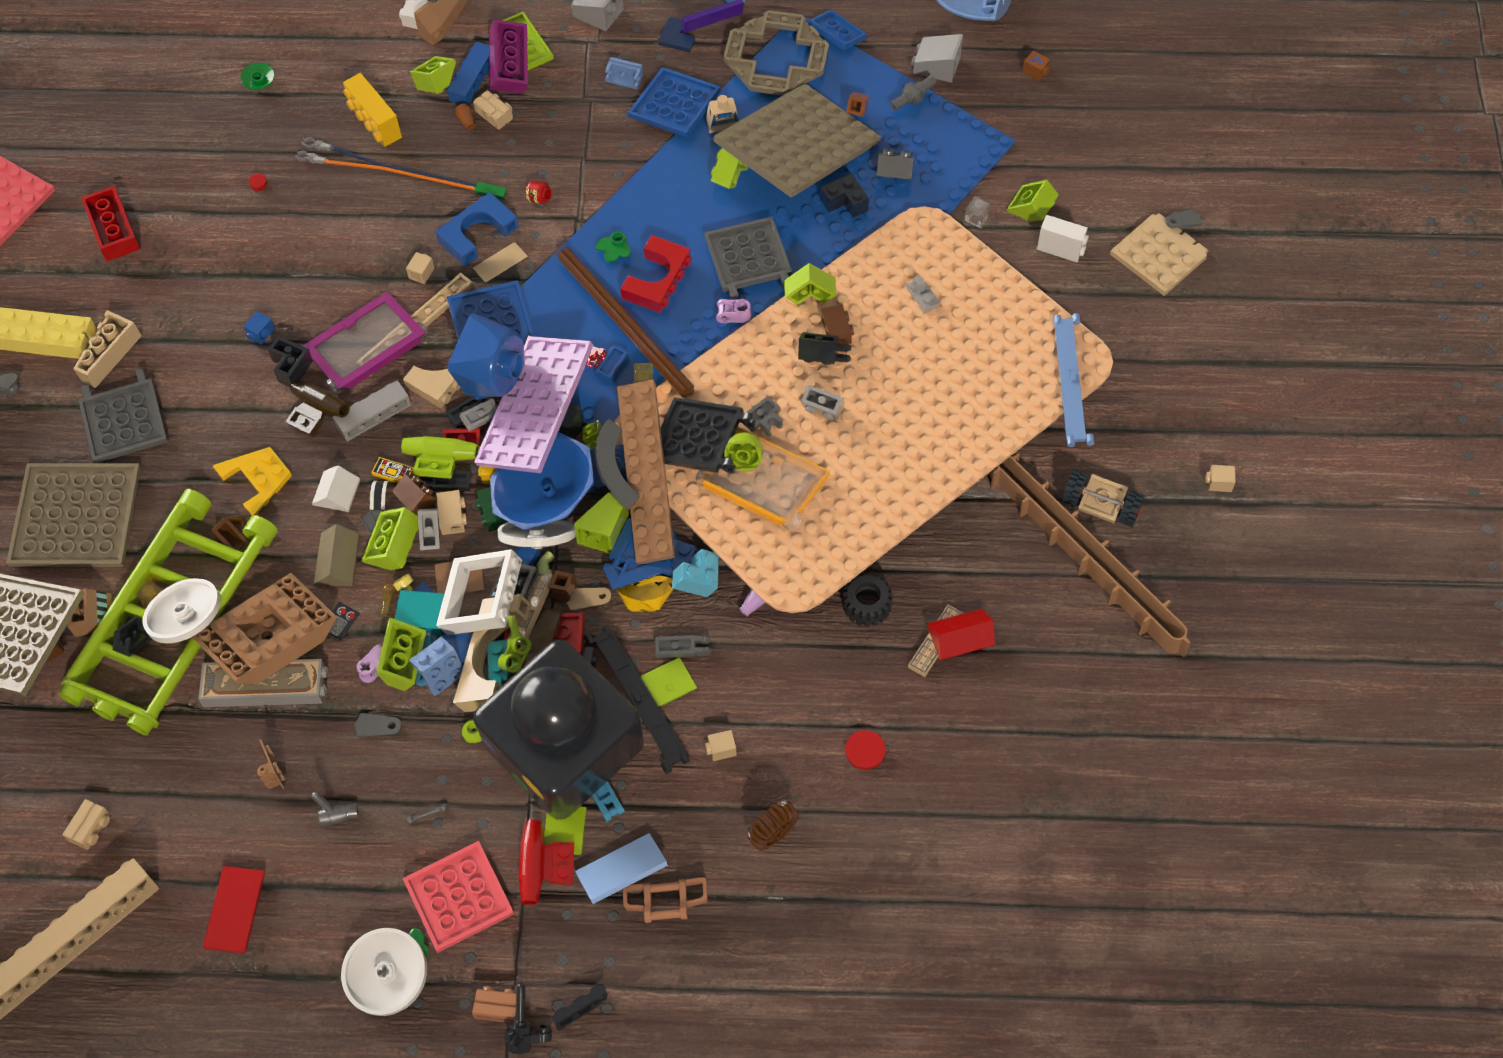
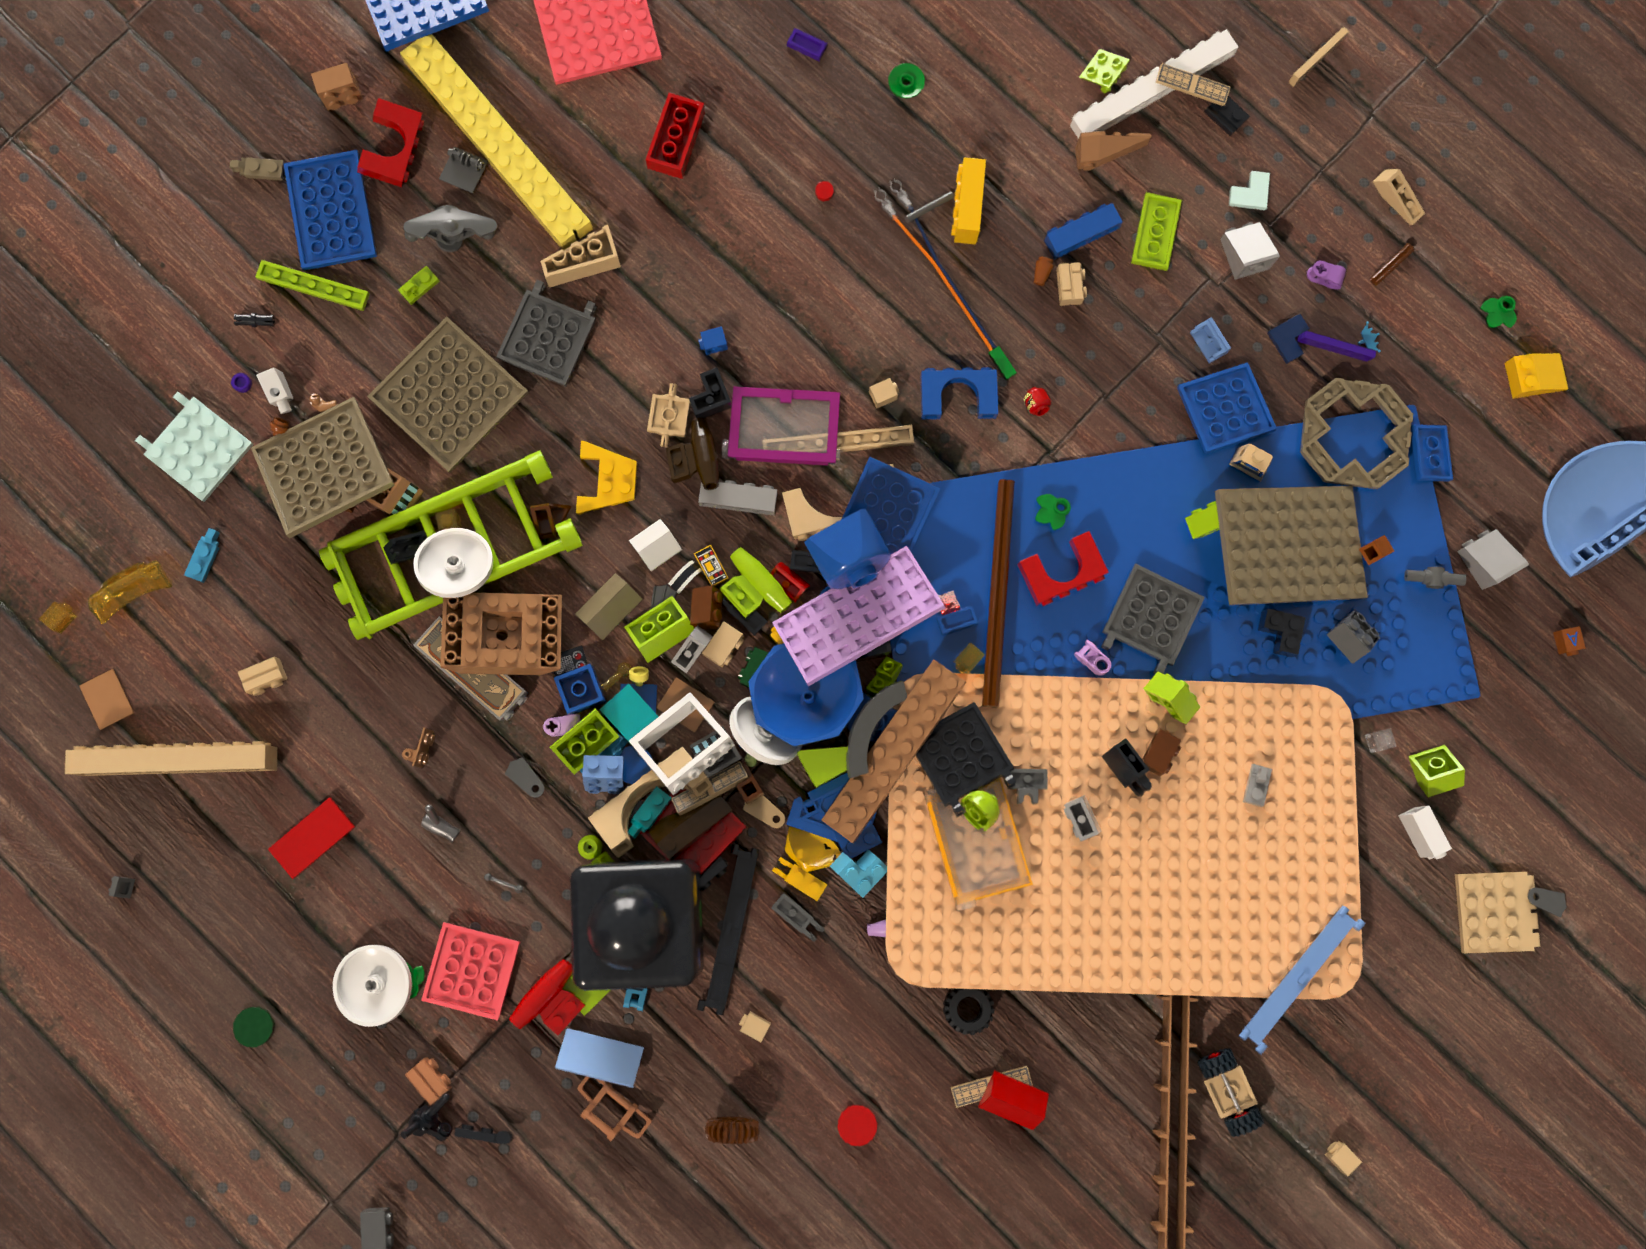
camera: 35 degrees right, 20 degrees up
(161, 107) = (806, 44): none -> dark purple tile
(268, 399) = (668, 415): none -> tan plate
(345, 137) = (928, 207): none -> dark grey bar
(364, 625) = (580, 689): none -> blue brick
(434, 74) = (1050, 207): lime slope -> none
(479, 415) = (811, 578): light grey hinge -> none
(500, 262) = (953, 440): tan sticker -> none
(508, 56) = (1125, 244): magenta brick -> none
(517, 655) = (668, 821): lime beam -> none
(659, 620) = (802, 880): none -> yellow hinge
(668, 682) = (763, 935): lime piece -> none

